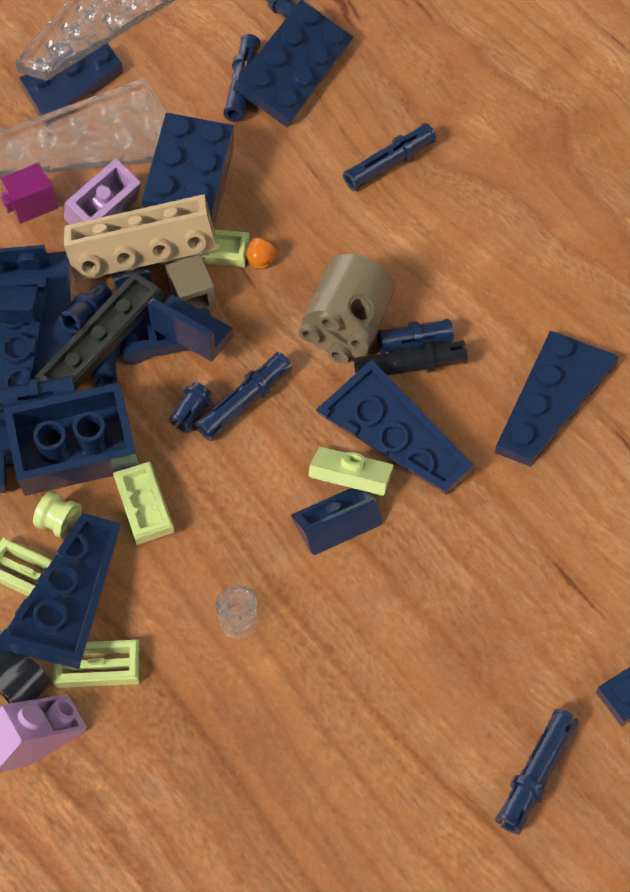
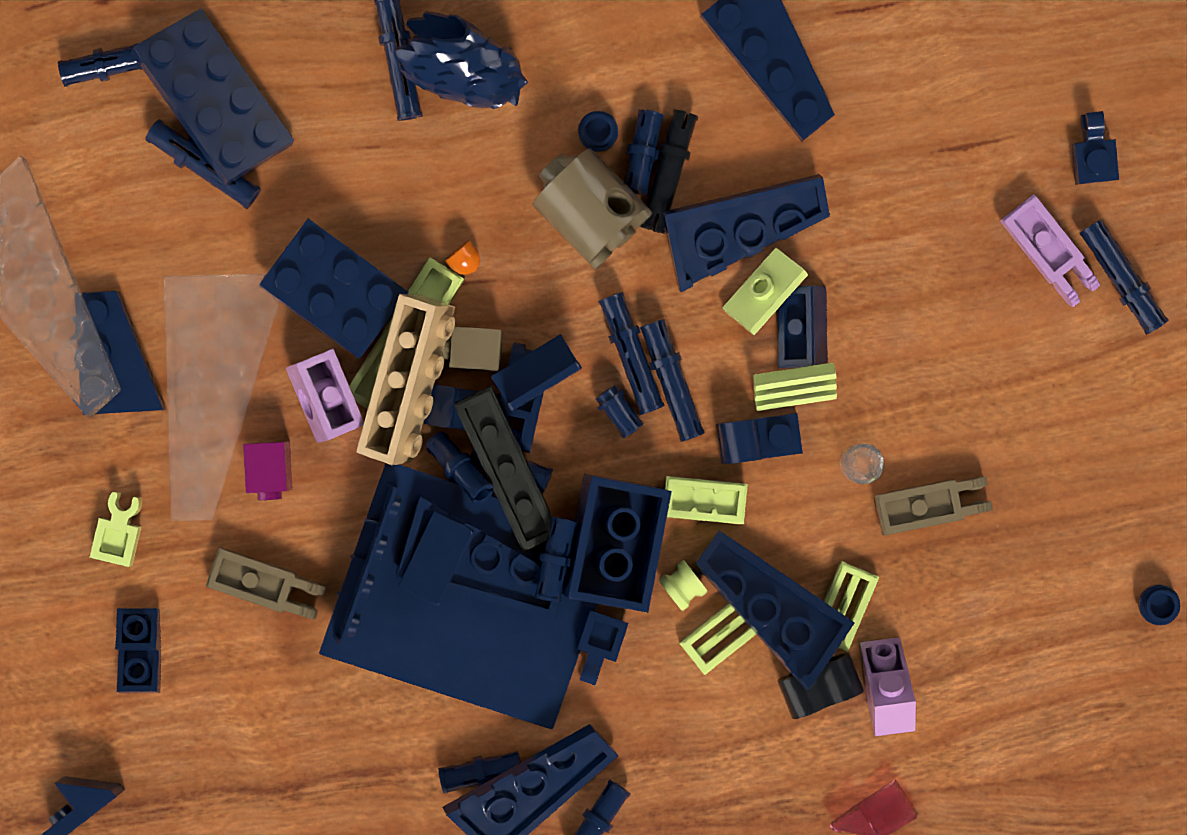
camera: 65 degrees left, 30 degrees up
(215, 517) = (759, 438): none -> dark blue plate
(227, 692) = (928, 505): none -> dark tan hinge
(249, 423) = (670, 374): none -> dark blue pin
(277, 532) = (795, 386): none -> yellowish green tile
(408, 183) = (460, 62): none -> dark blue head
(413, 301) = (598, 131): none -> dark blue plate
(524, 687) = (1048, 247): none -> lavender hinge

